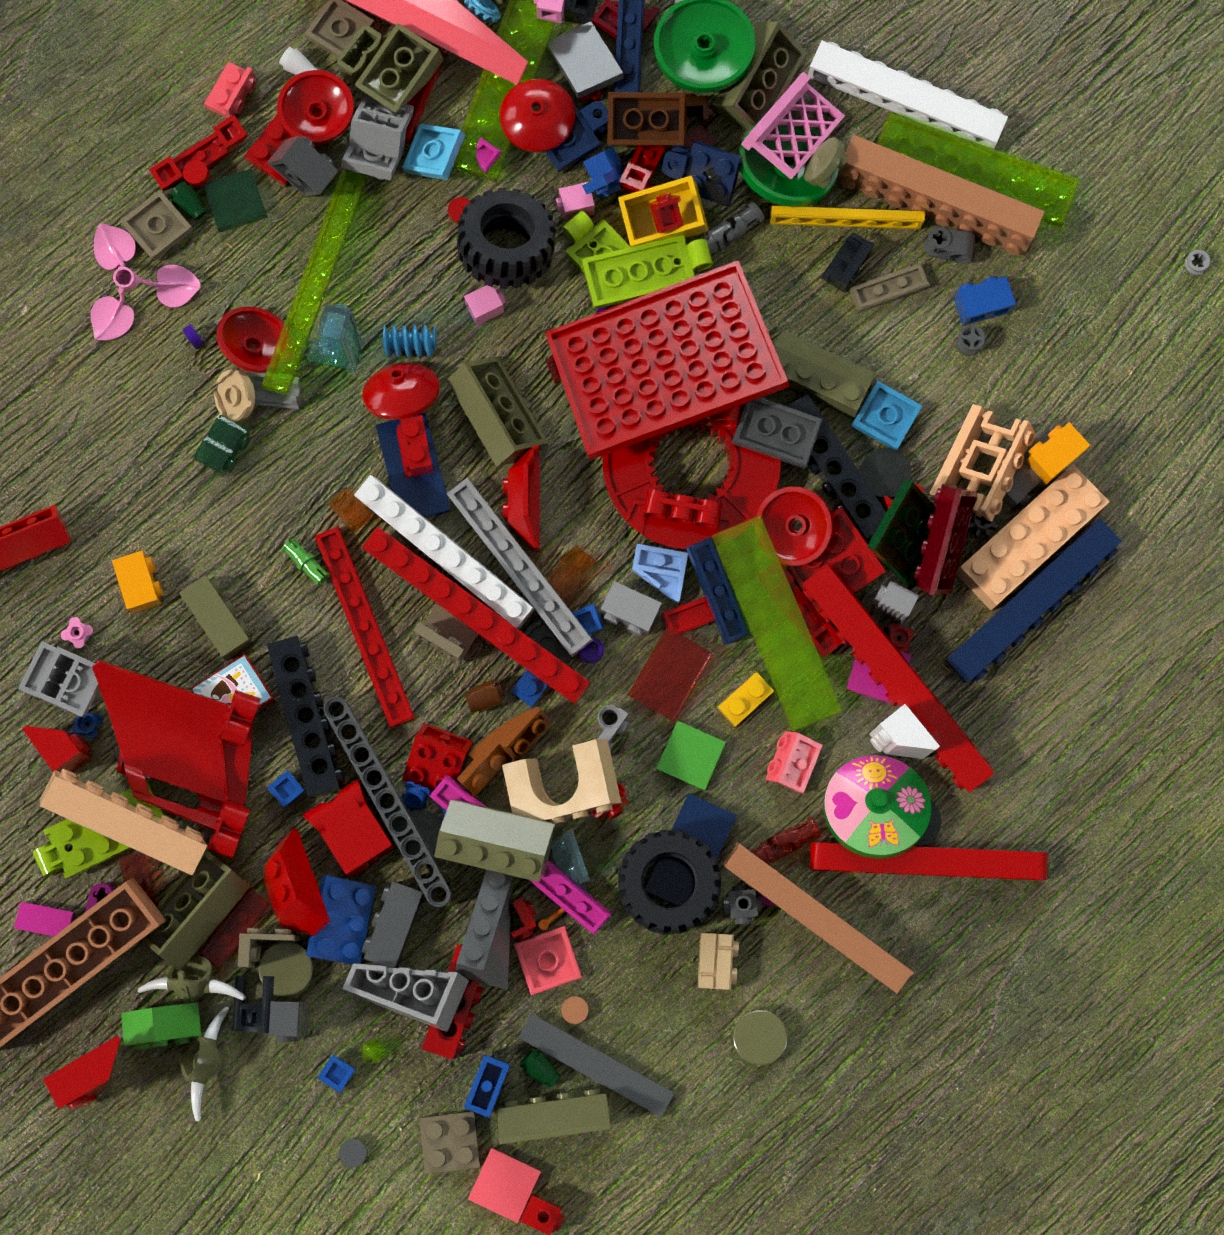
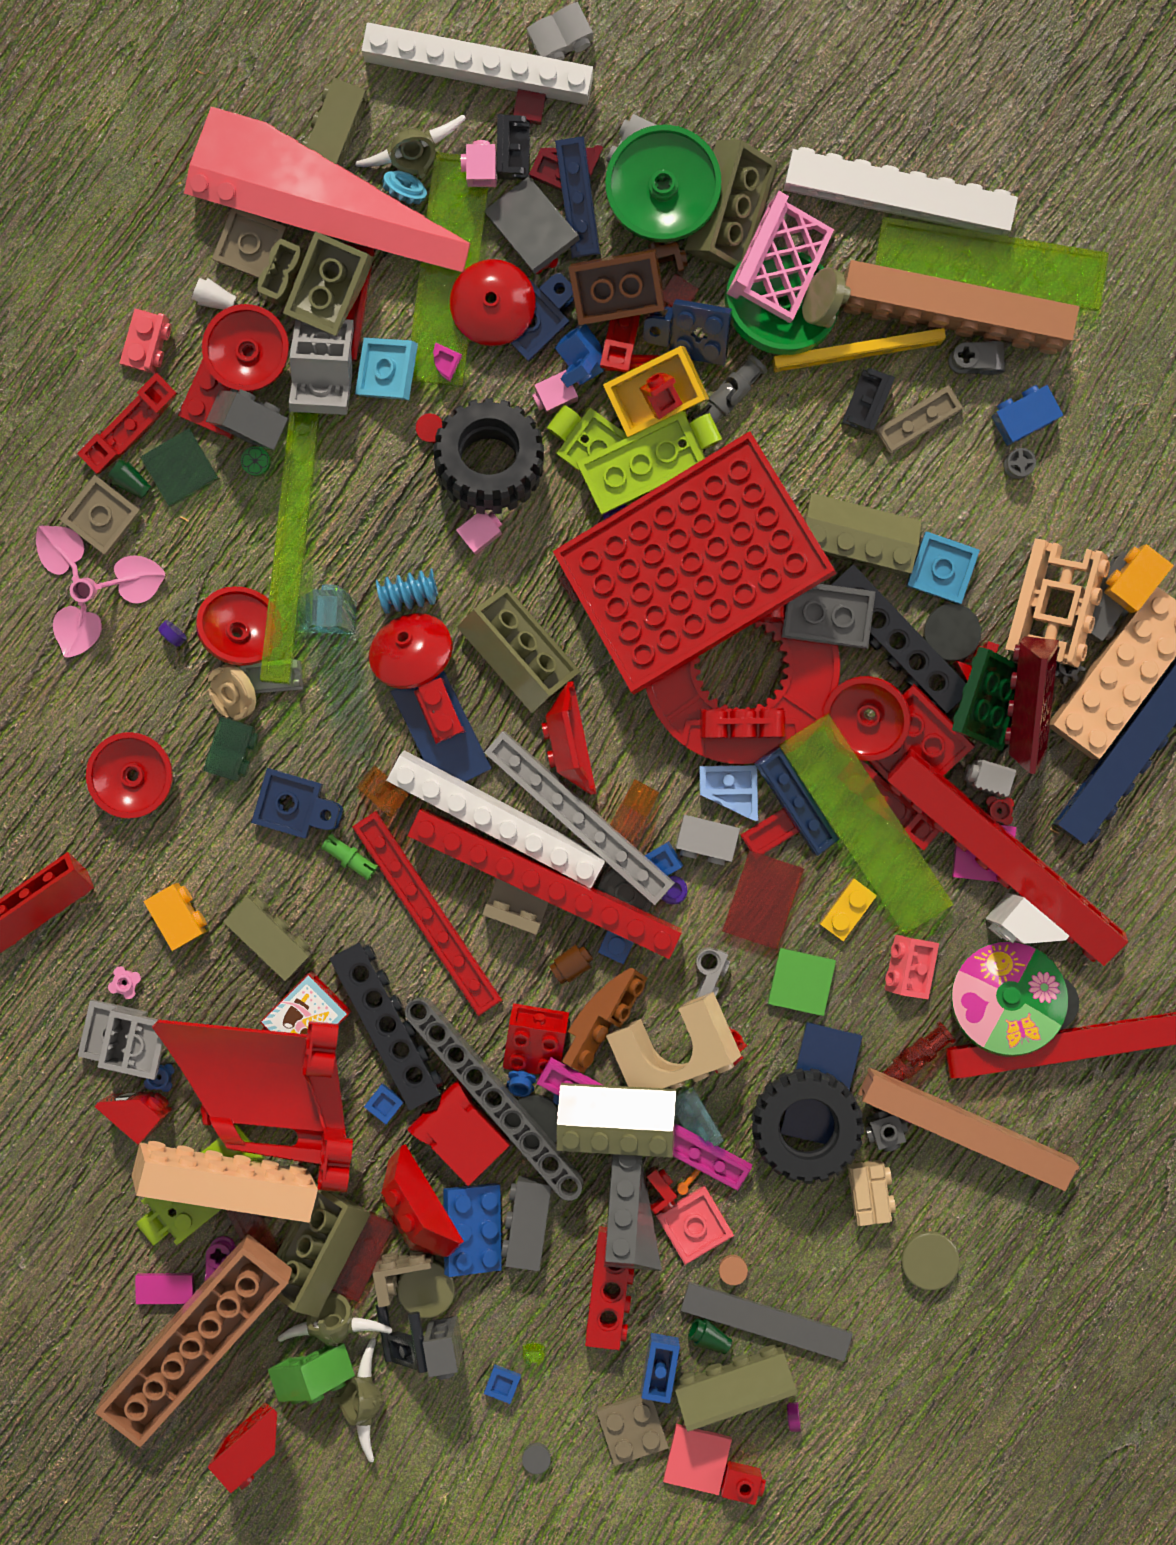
camera: 10 degrees left, 10 degrees up
(118, 434) = (110, 769): none -> red dish
(196, 173) = (130, 447): red tile -> none
(279, 510) = (308, 807): none -> dark blue plate
(302, 208) = (255, 461): none -> tile
(418, 994) = (568, 1296): light grey wedge -> none
(603, 1161) = (794, 1417): none -> magenta tile

